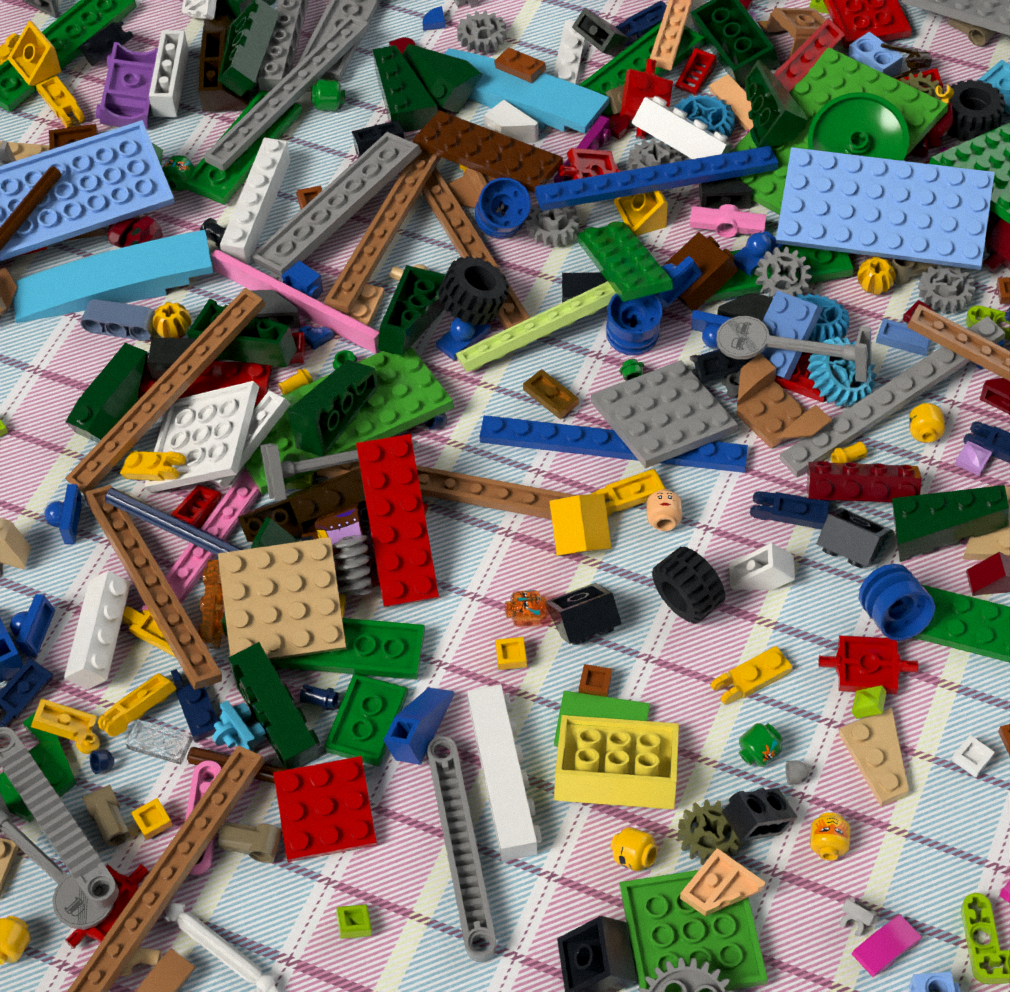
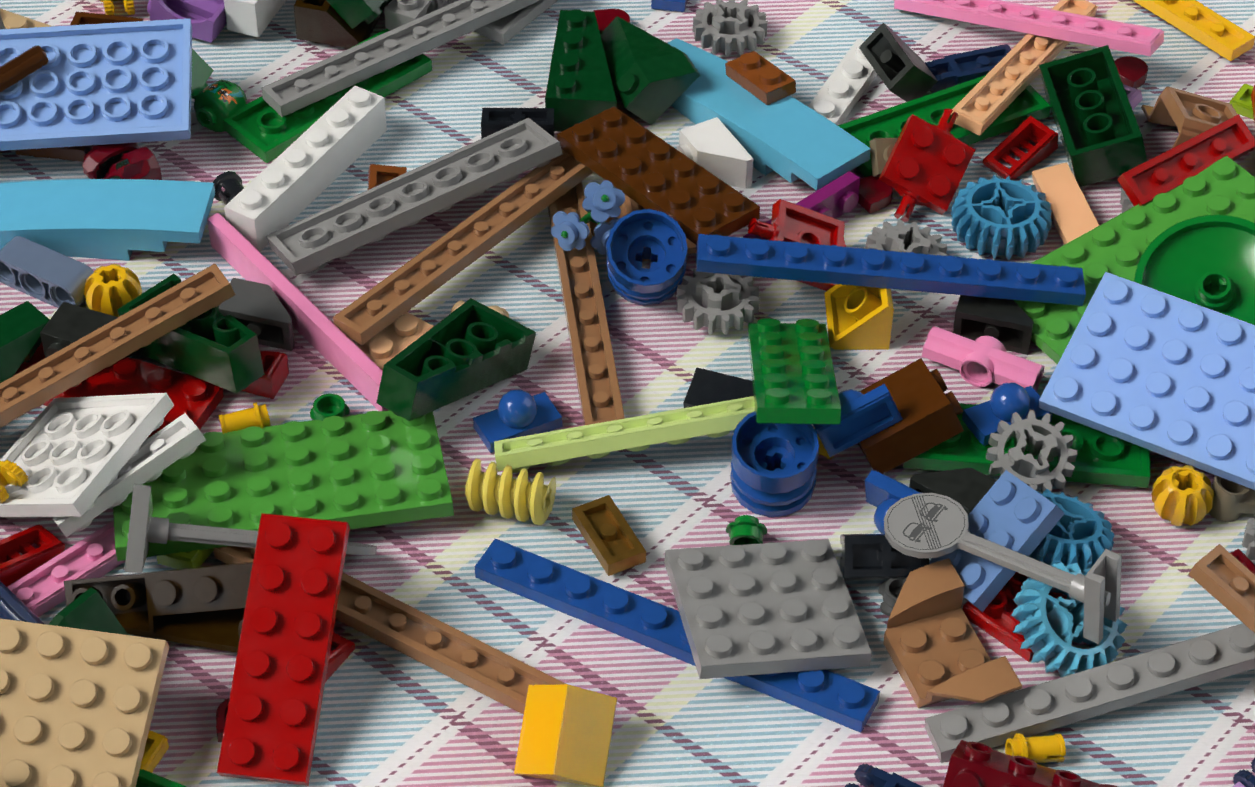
camera: 15 degrees right, 10 degrees down
(304, 280) = (322, 286): blue brick -> none
(316, 336) = (308, 367): blue tile -> none
(327, 95) = (474, 56): green head -> none
(331, 407) = (264, 460): dark green wedge -> none
(338, 525) = (201, 647): reddish brown torso -> none
(352, 565) = (190, 696): light grey piece -> none
(439, 422) = (424, 529): dark blue hinge -> none
(460, 181) = (601, 203): none -> medium blue plant
(473, 290) = (549, 355): black tyre -> none
(480, 384) = (509, 494): none -> light yellow piece
(630, 491) = (667, 710): yellow hinge -> none
(664, 510) = (704, 750): light nougat head -> none
(678, 131) = (952, 215): white brick -> none
(774, 111) = (1108, 222): dark green wedge -> none
(899, 336) = (1184, 595): medium blue tile -> none
(926, 423) = (1177, 732): yellow head -> none

